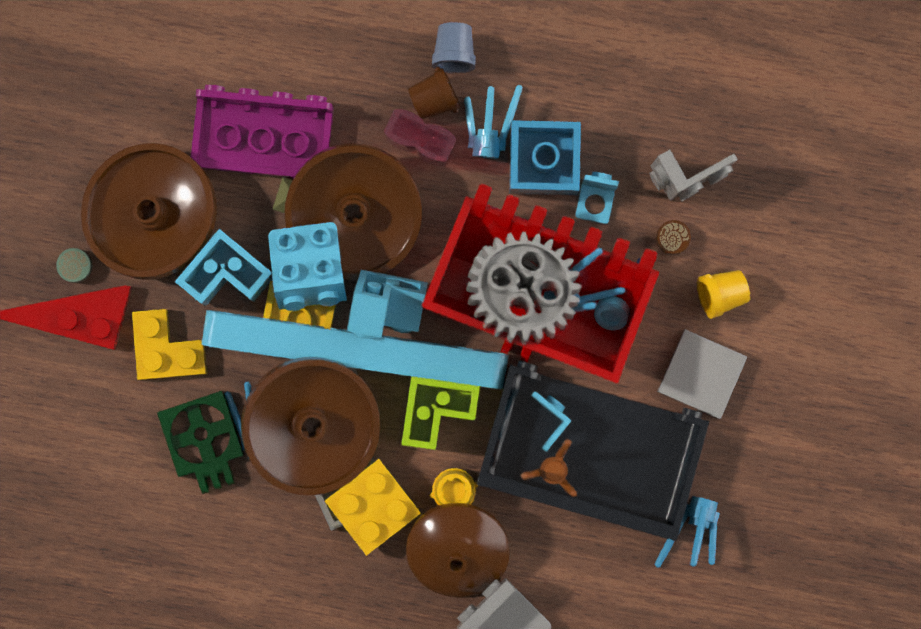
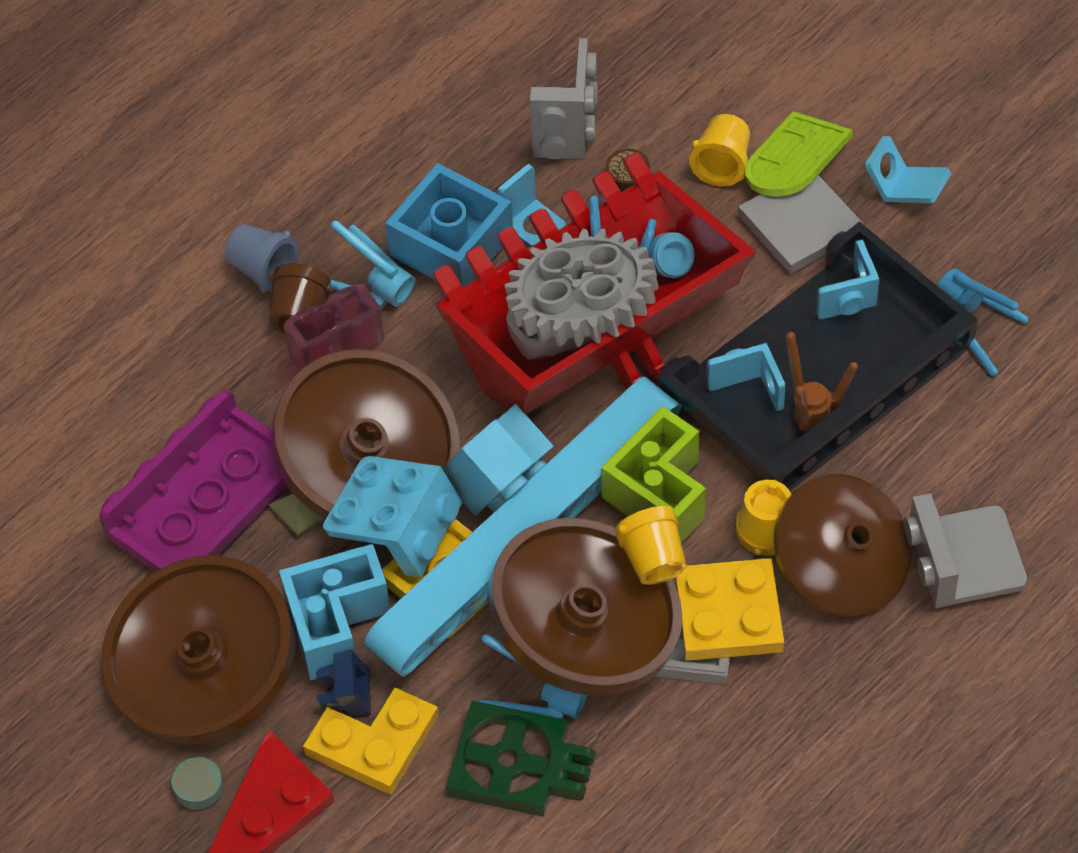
camera: 50 degrees left, 30 degrees down
(185, 314) = (350, 683): none -> dark blue tile
(372, 444) = (652, 544): none -> yellow piece
(651, 450) = (854, 294): none -> medium azure bracket
(750, 340) = (794, 155): none -> lime window
(774, 427) = (903, 182): none -> medium azure bracket

